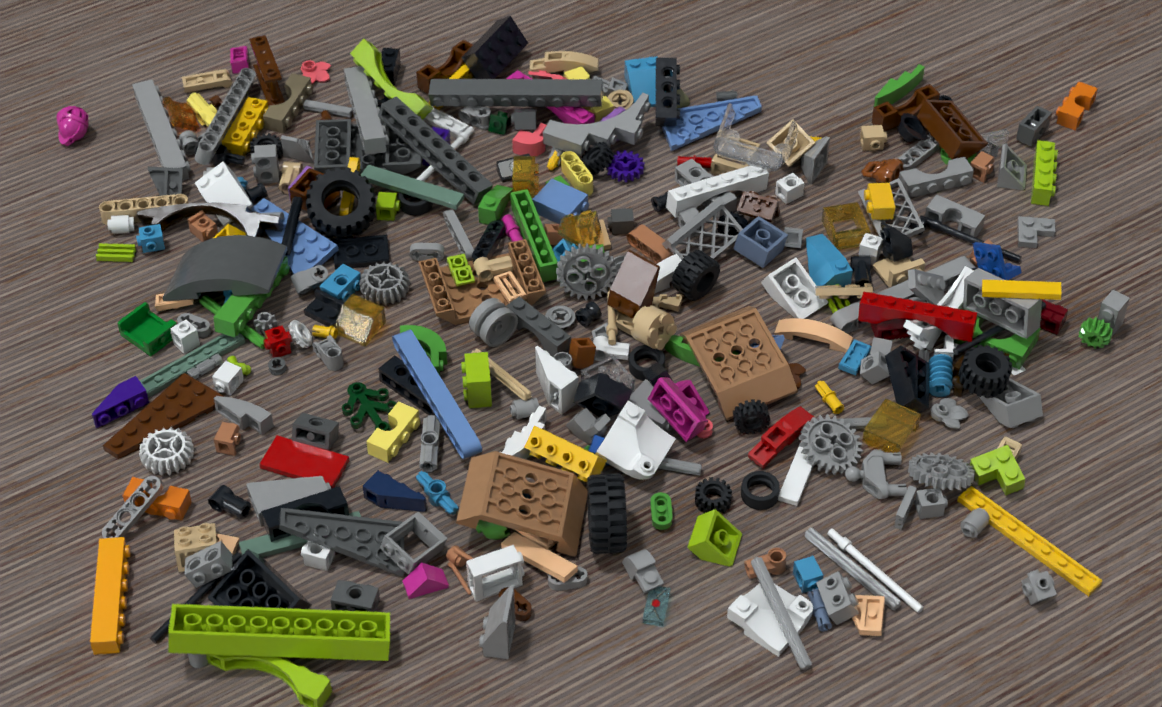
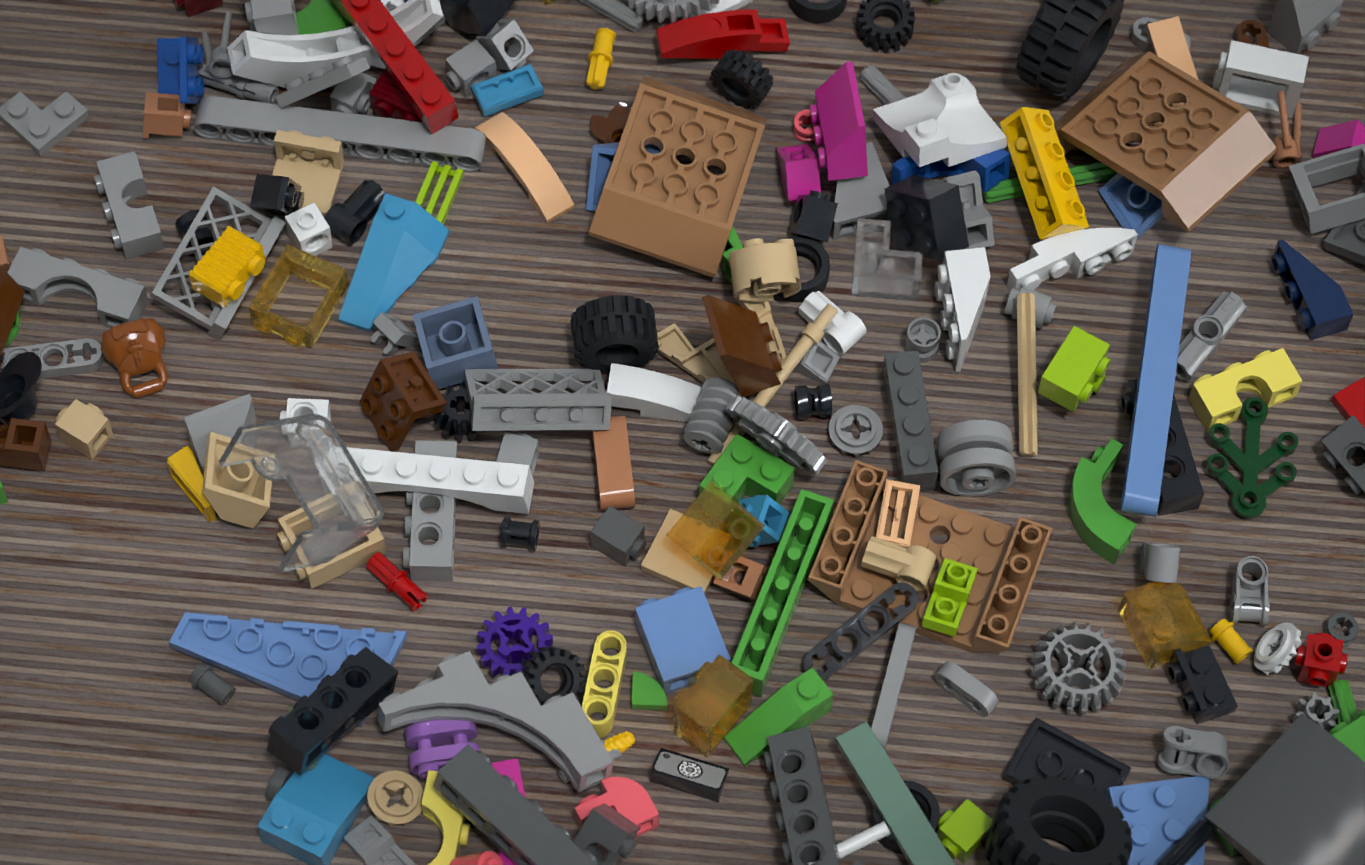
camera: 145 degrees left, 15 degrees up
(342, 283) = (1136, 724): dark azure brick -> none
(378, 338) = (1160, 562): none -> light grey piece
(437, 493) = (1248, 268): dark azure axle -> none
(512, 229) = (799, 639): dark pink pin -> none
(582, 352) = (883, 330): dark orange brick -> none
(661, 512) = (967, 48): bright green plate -> none
(793, 290) = (484, 243): white slope -> none
(825, 292) = (421, 172): tan wing -> none
(938, 226) = (164, 214): black bar -> none

